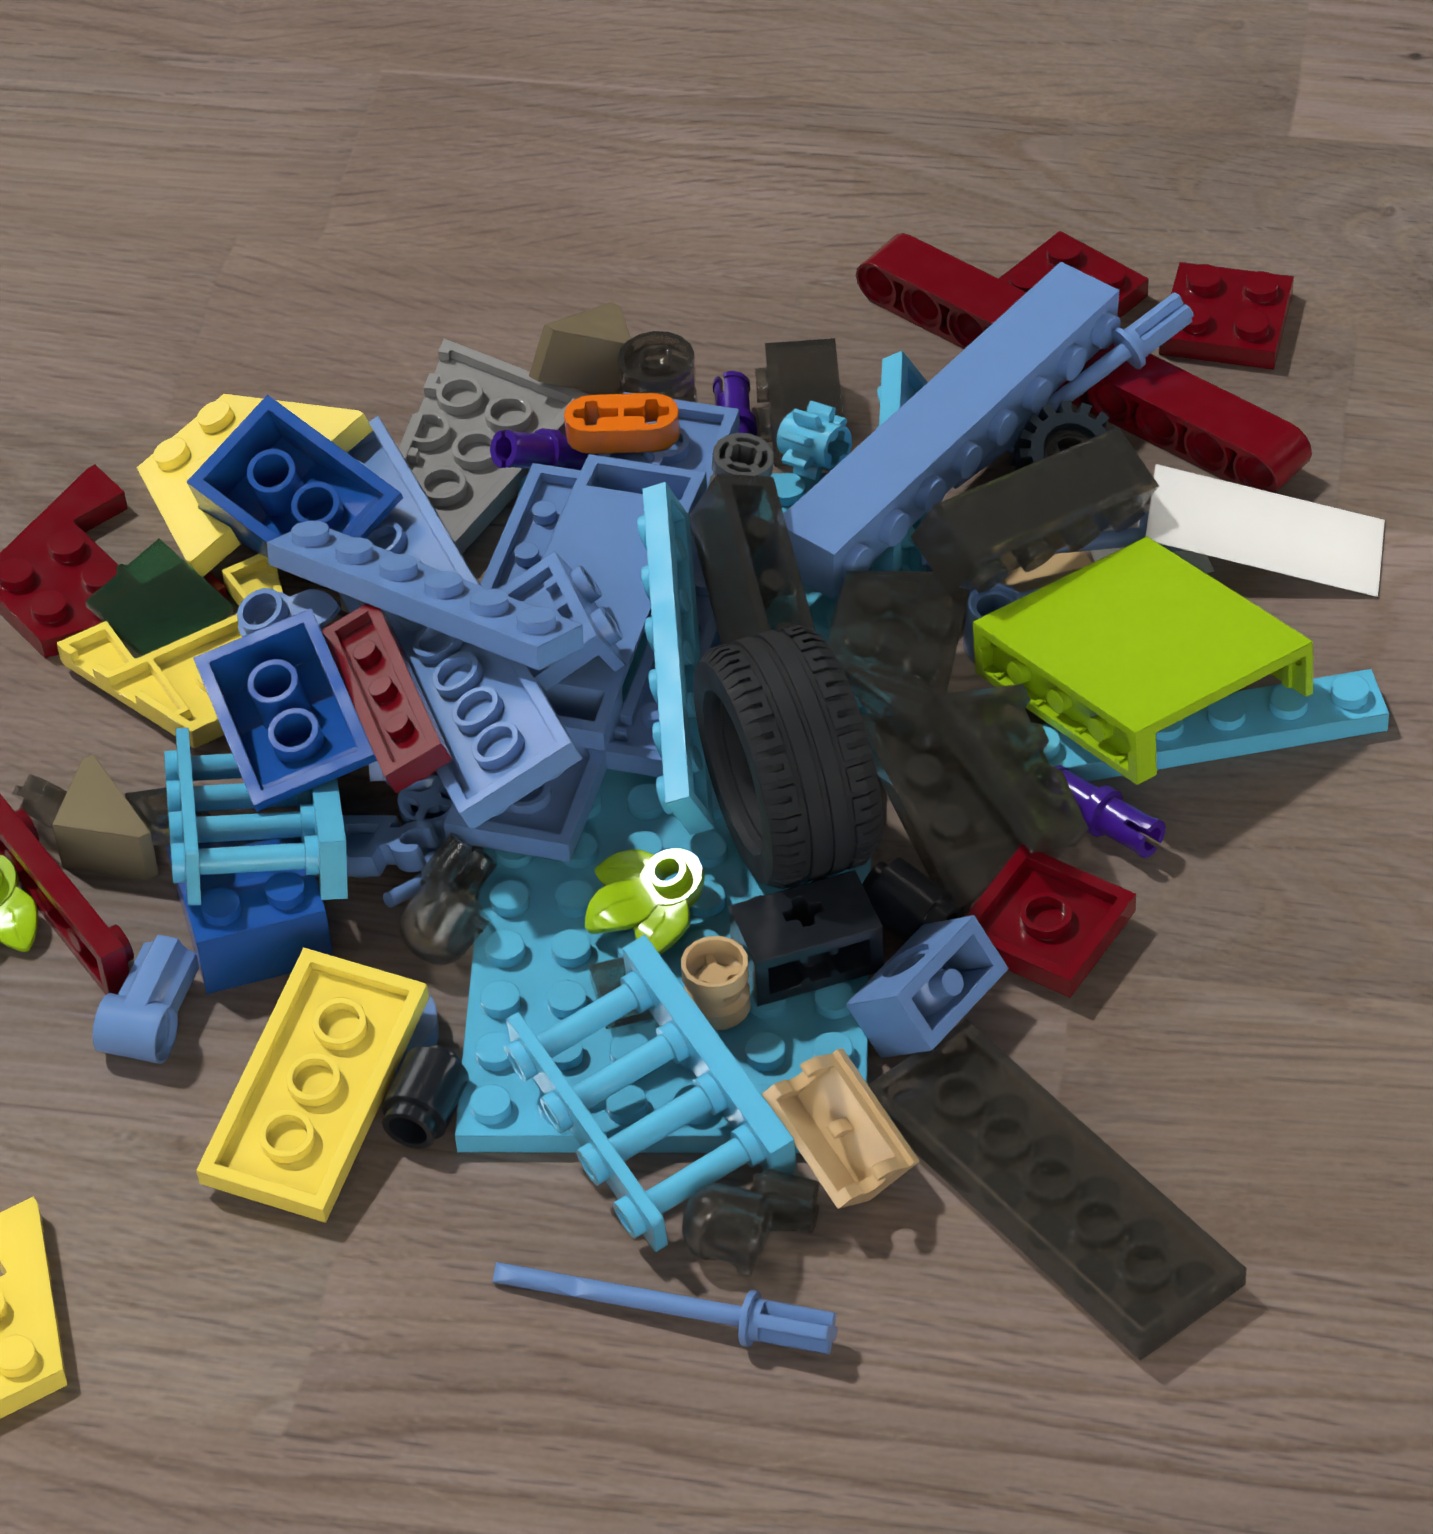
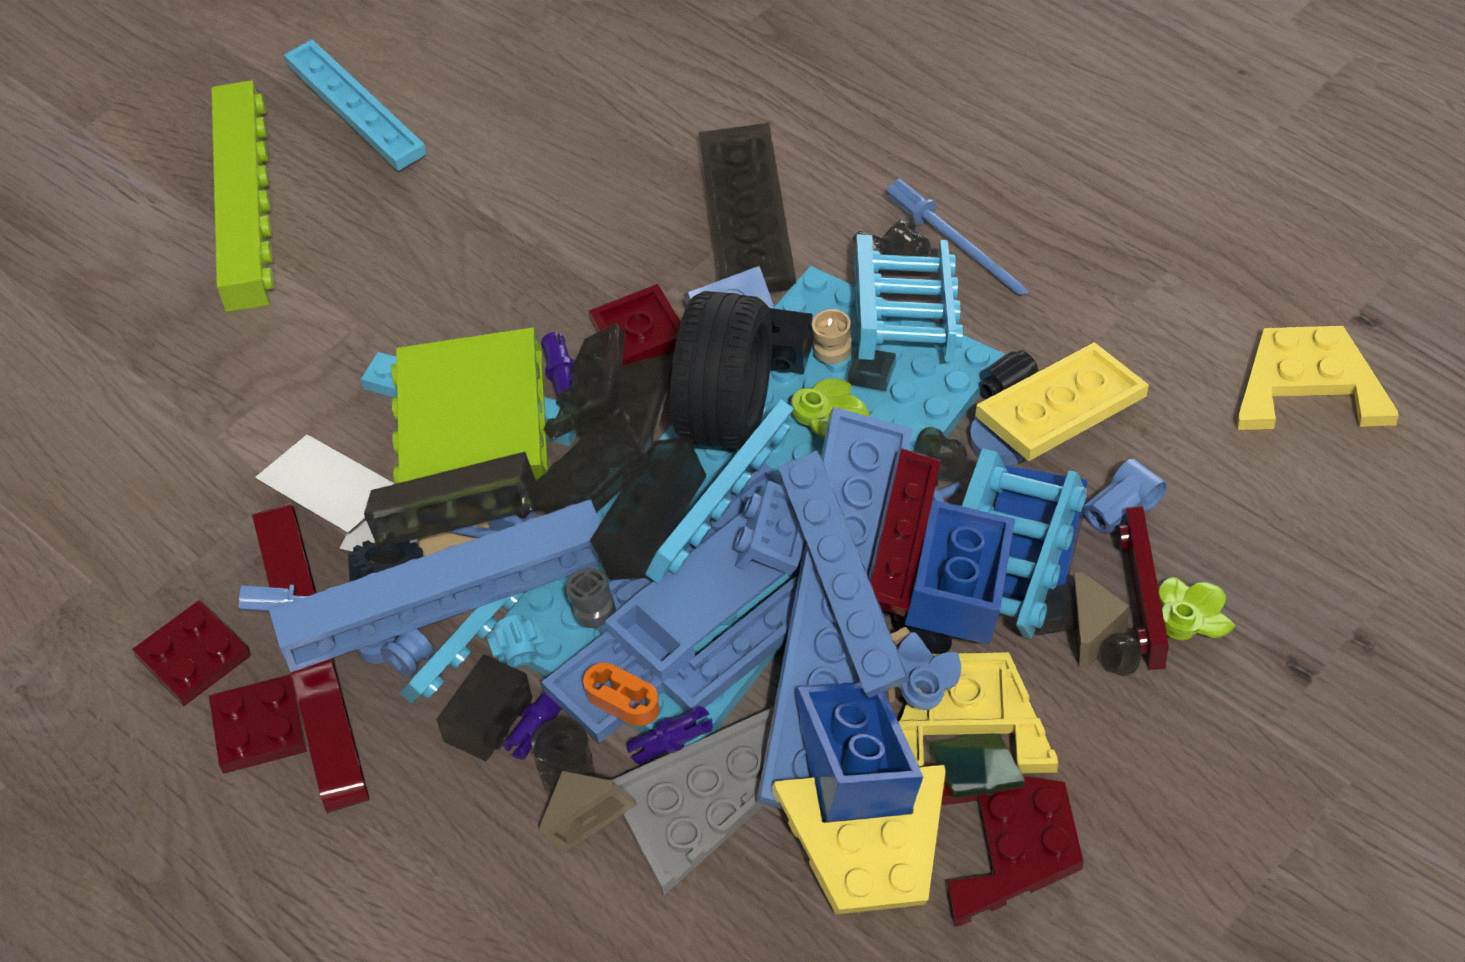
camera: 145 degrees left, 5 degrees up
(841, 1129) = (827, 252): tan hinge -> none

